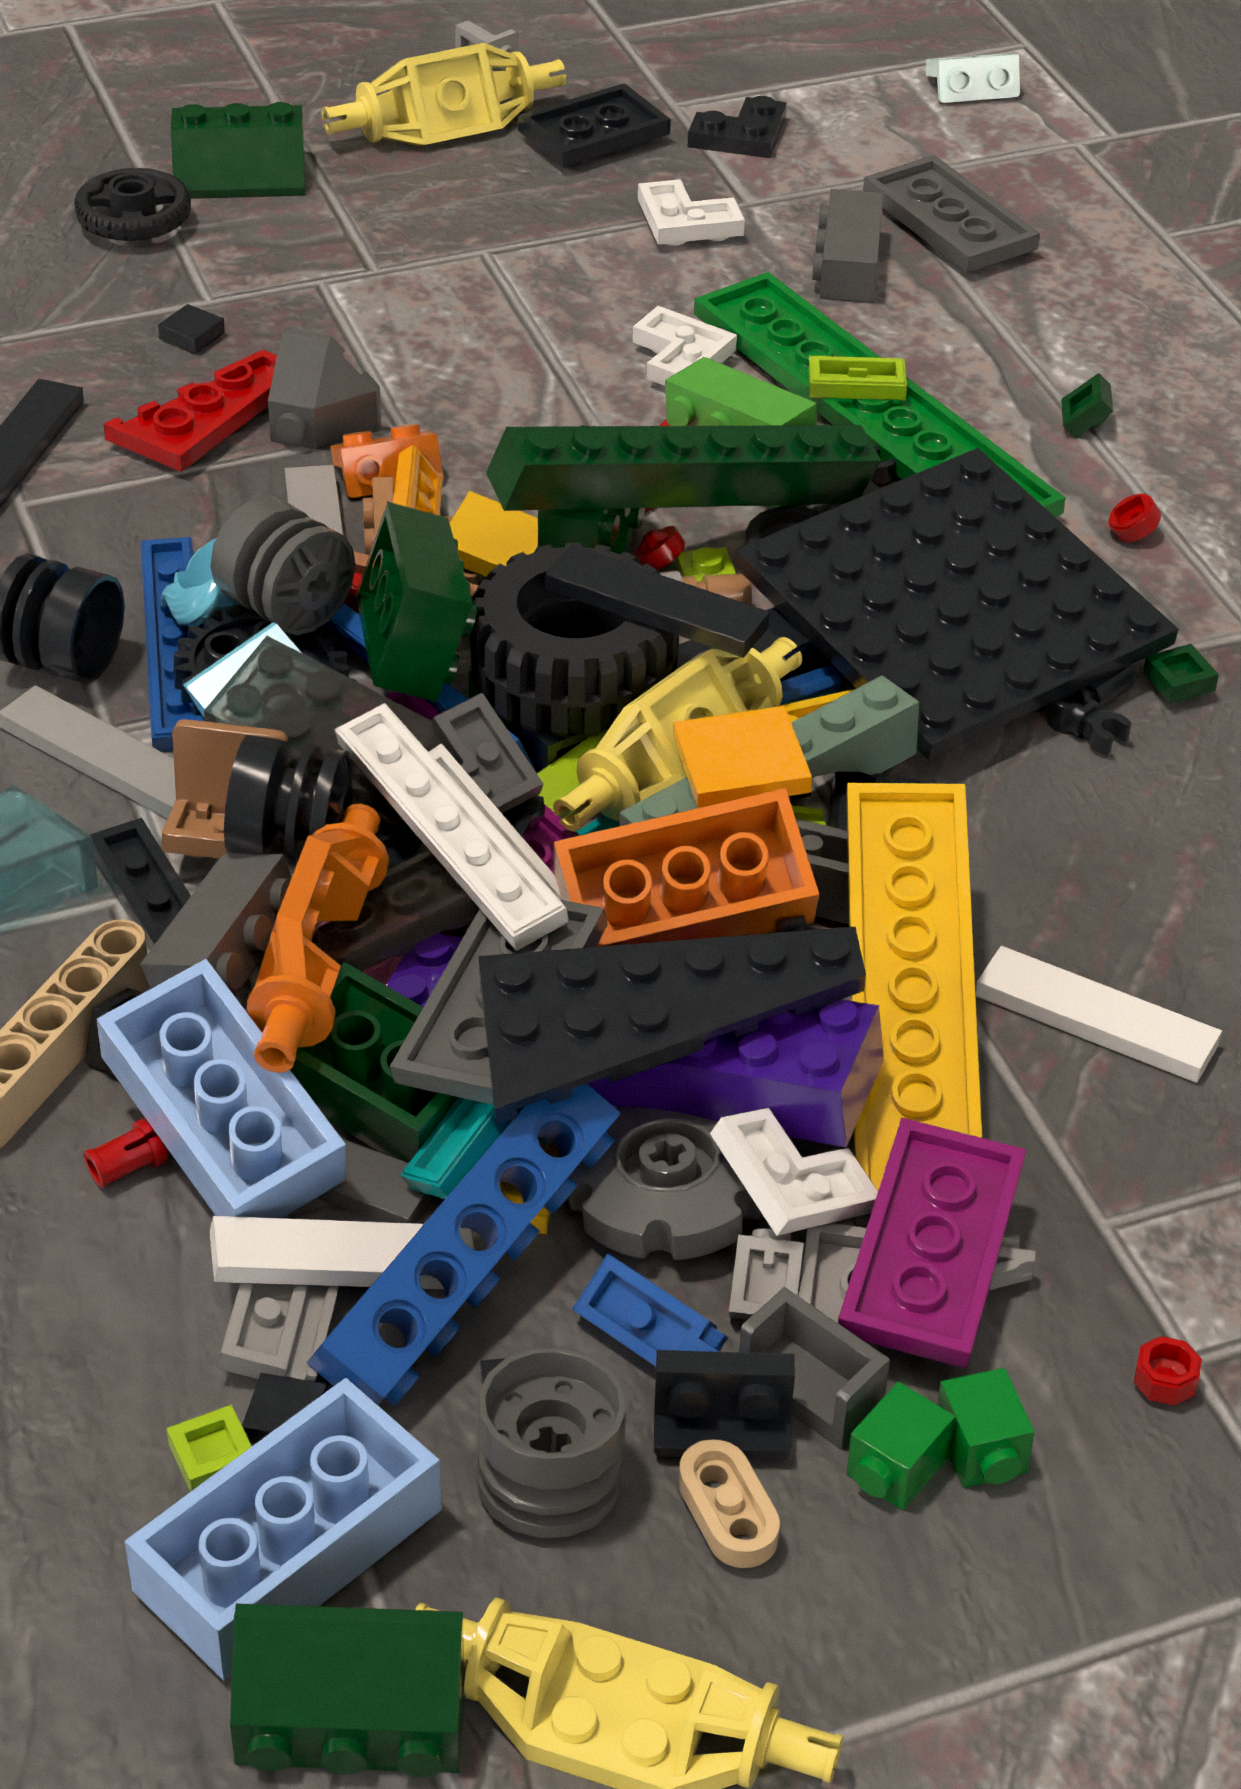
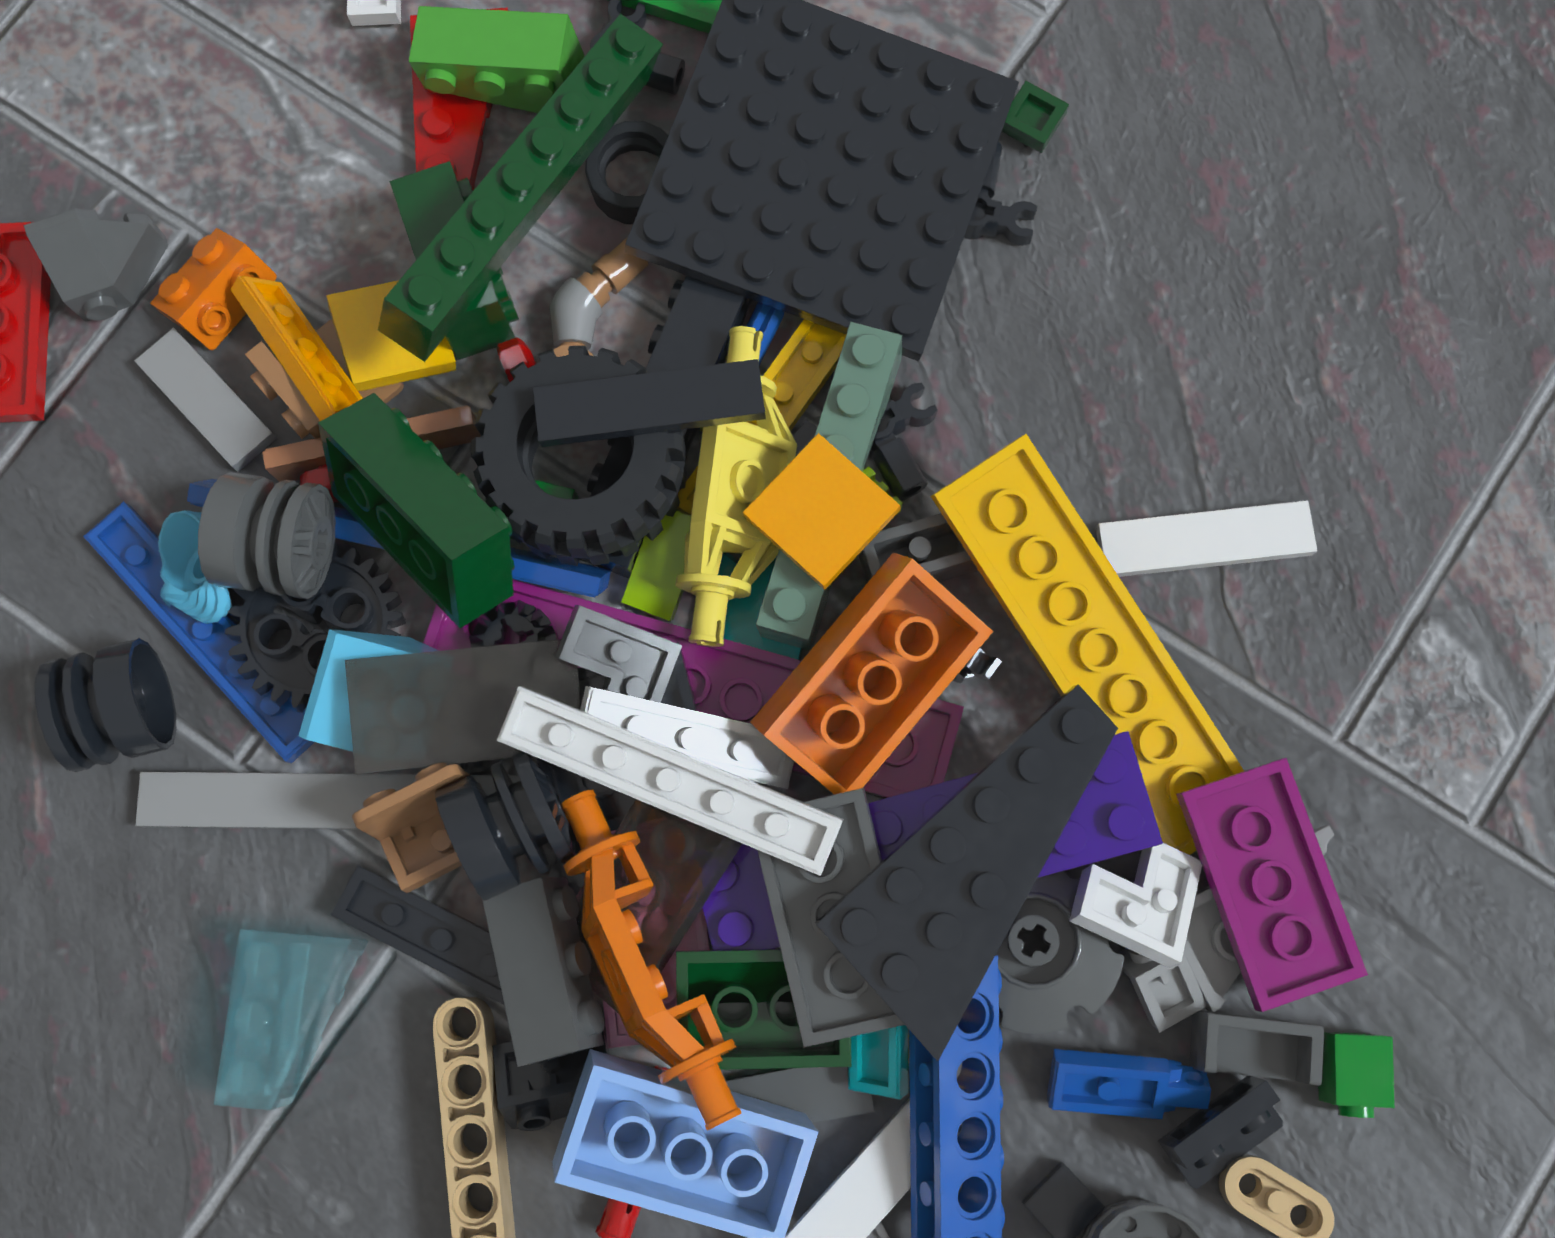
camera: 30 degrees left, 35 degrees up
(660, 547) = (532, 252): red tile -> none
(704, 562) = (579, 243): lime plate -> none
(990, 1428) = (1399, 1008): green brick -> none
(1167, 1370) = (1474, 861): red tile -> none

